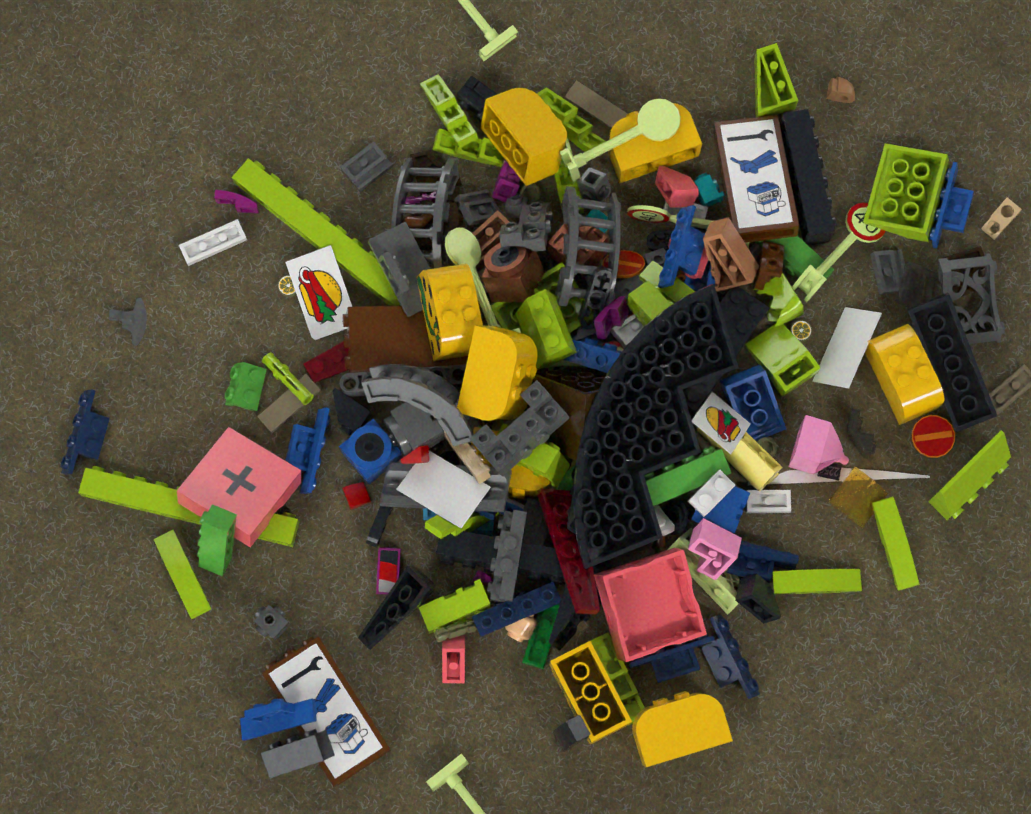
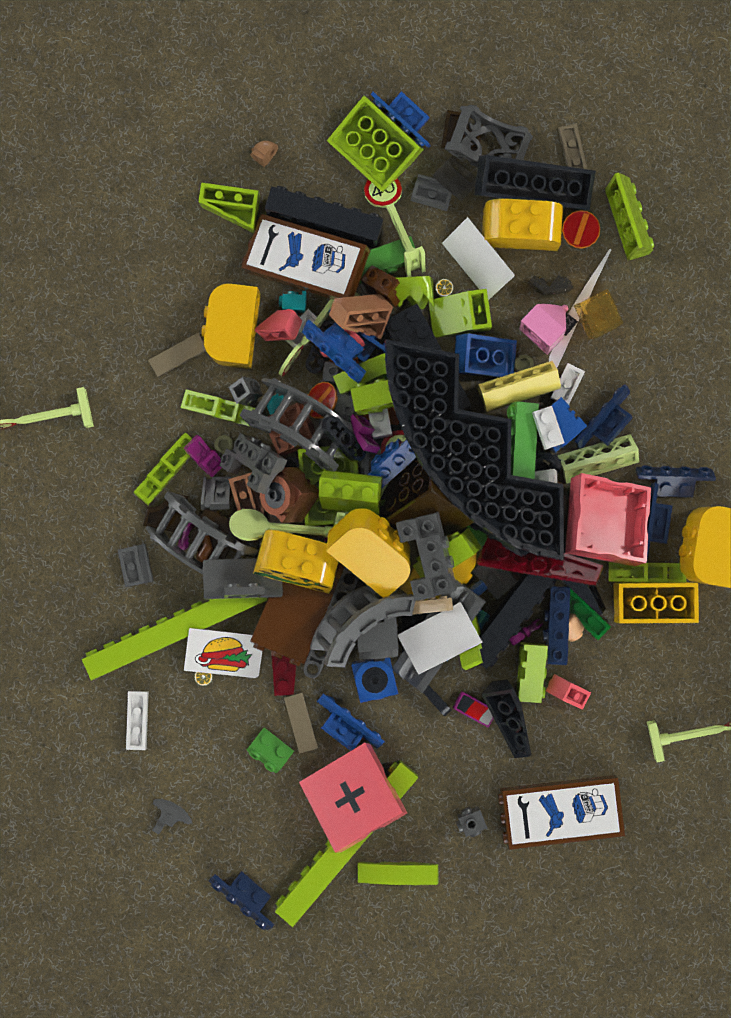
camera: 60 degrees left, 10 degrees up
(216, 539) = (389, 838): bright green brick -> none
(242, 203) = (116, 682): magenta slope -> none
(273, 363) = (273, 717): lime pin -> none
(276, 717) = (552, 854): blue bracket -> none
(297, 752) = (587, 852): brick -> none
(349, 413) = (333, 679): black slope -> none
(356, 495) = (401, 705): red slope -> none
(419, 455) = (404, 646): red slope -> none
(449, 111) = (122, 476): lime slope -> none
(455, 630) = (551, 680): olive axle -> none
(473, 97) = (126, 446): black brick -> none
(508, 556) = (520, 614): dark grey bracket -> none
(525, 133) = (176, 425): yellow brick -> none
(571, 733) = (679, 633): black slope -> none
(578, 129) = (180, 384): lime slope -> none
(656, 120) = (221, 314): yellowish green piece -> none
(715, 546) = (591, 447): bright pink brick -> none
(721, 422) = (497, 391): sticker -> none
(758, 598) = (640, 432): black slope -> none
(817, 581) = (649, 380): lime slope -> none
(895, 543) = (649, 303): lime slope -> none
(1001, 218) = (434, 81): tan leg -> none

